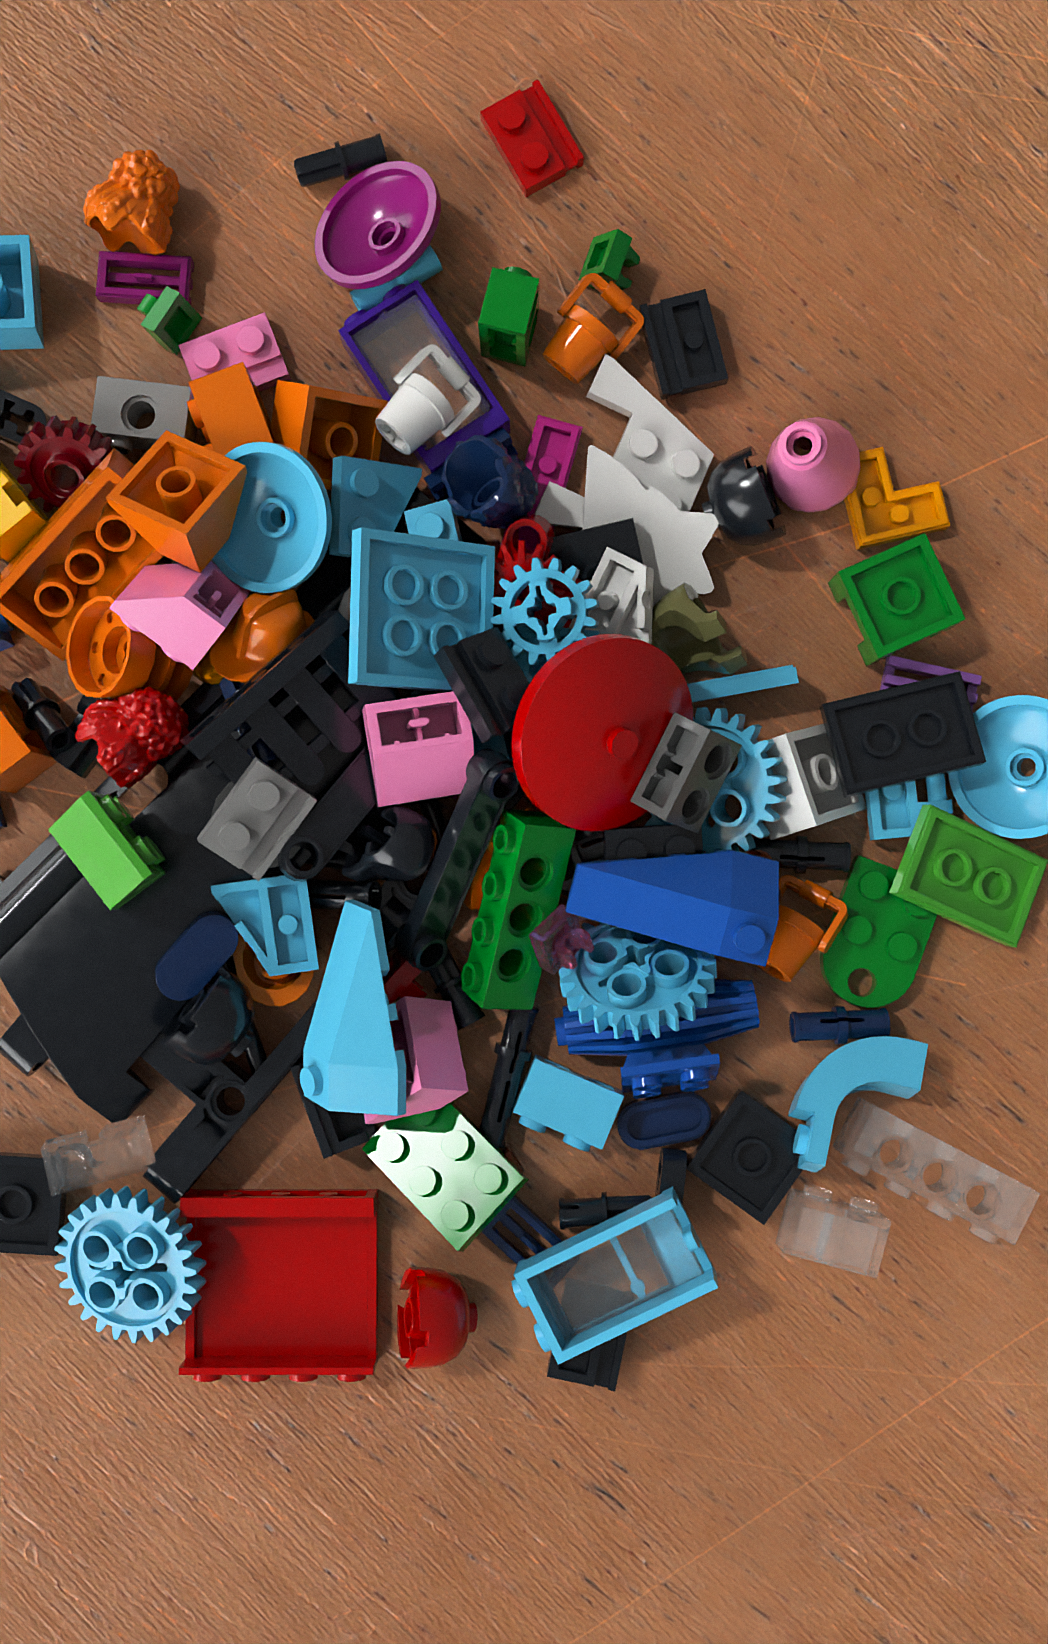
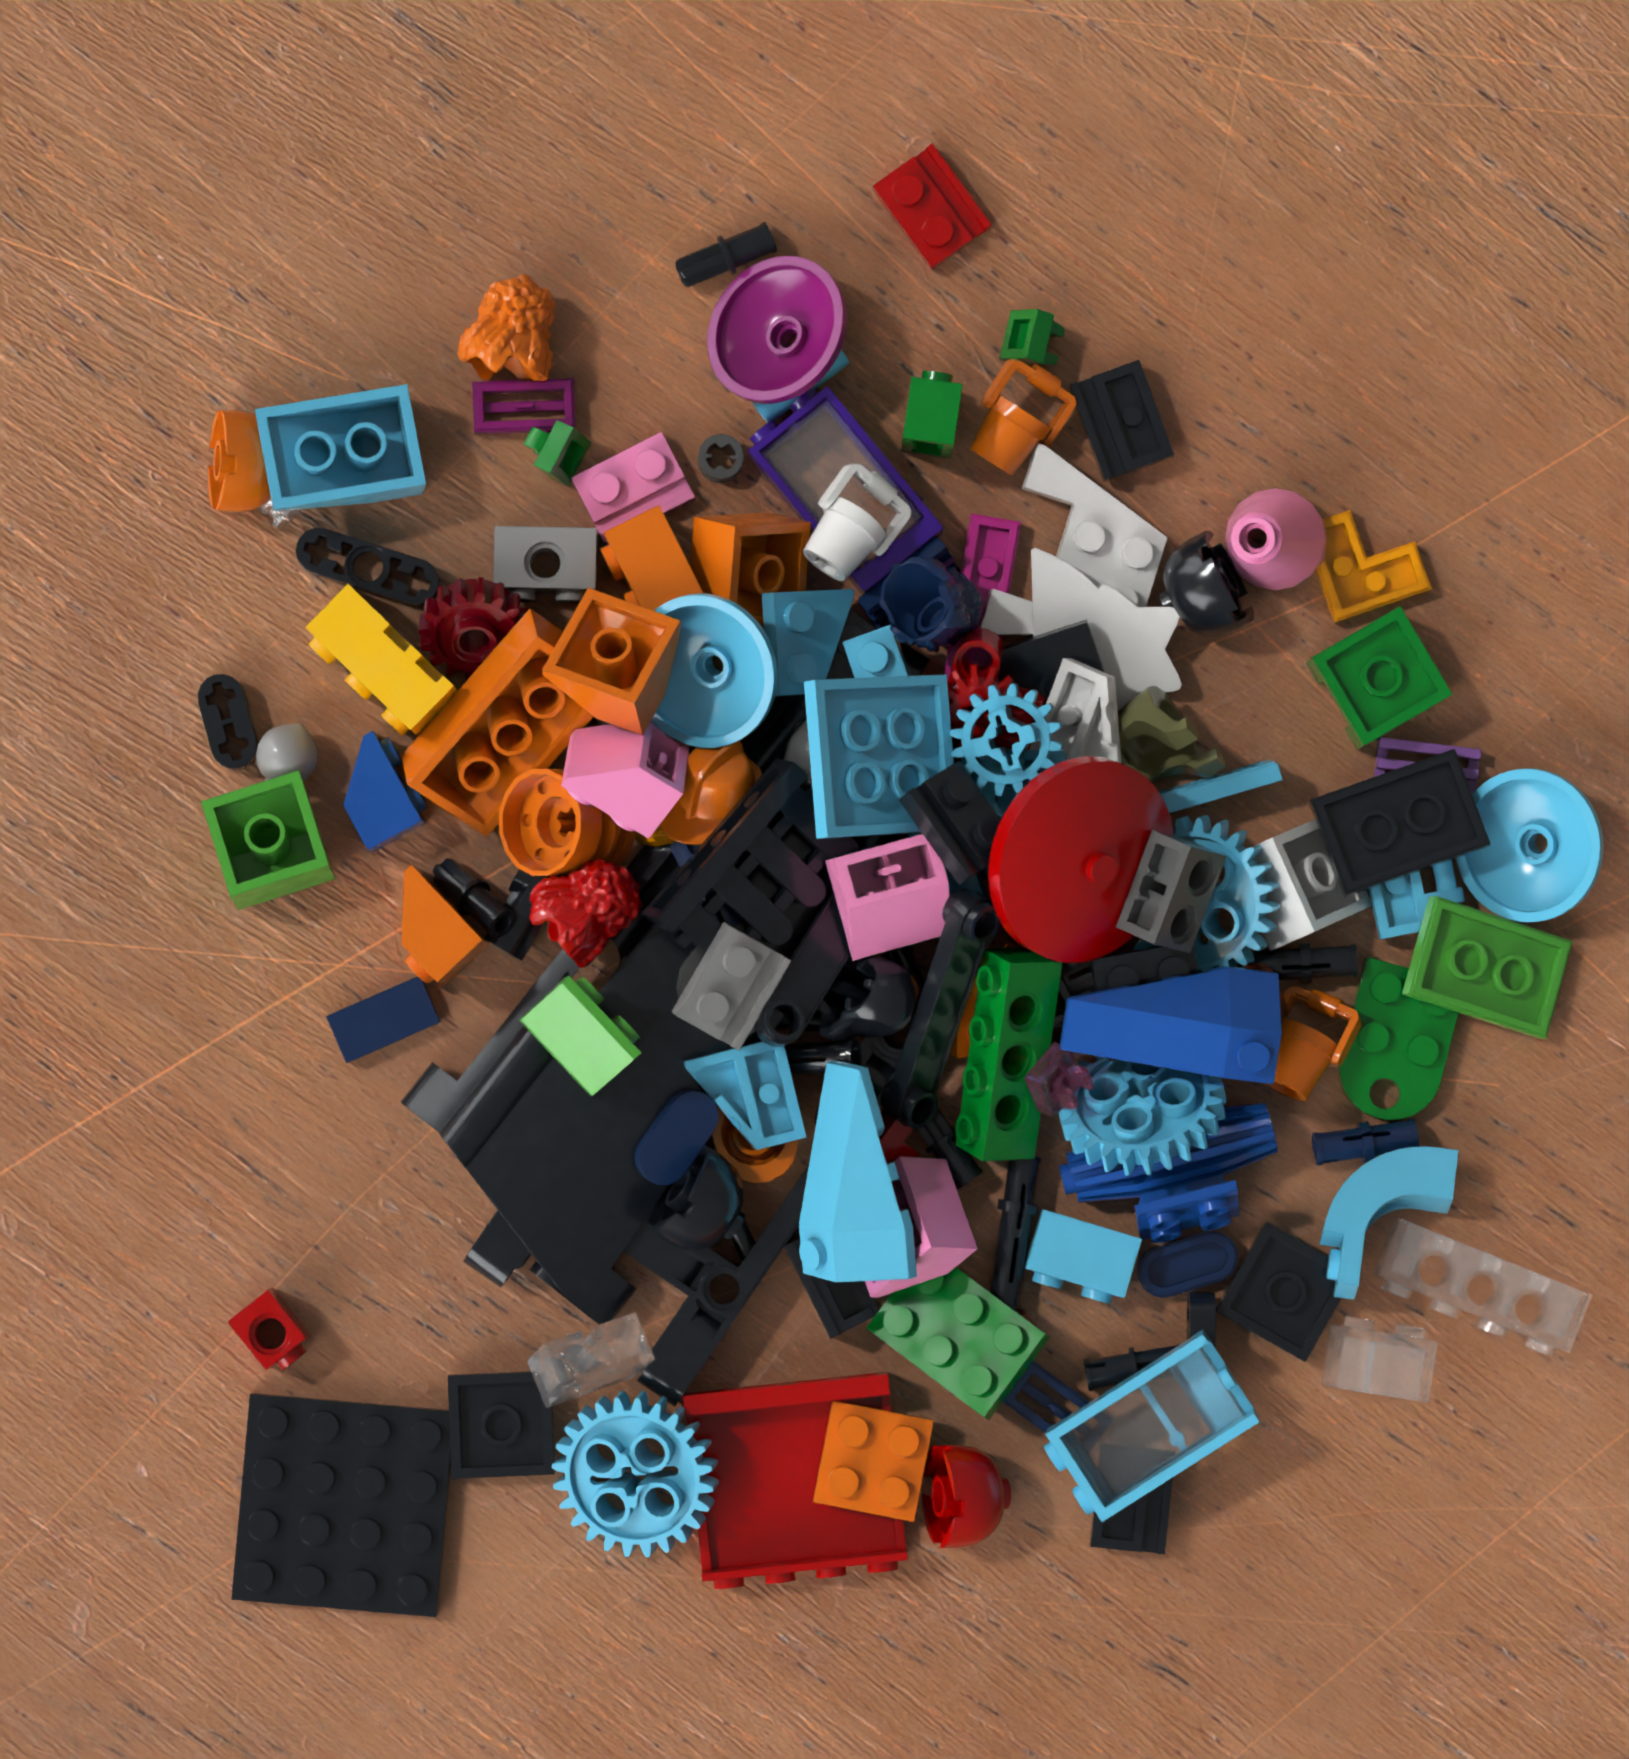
camera: 10 degrees left, 0 degrees up
(312, 356) = (720, 442): none -> dark grey bush
(353, 1275) = (873, 1460): none -> orange plate

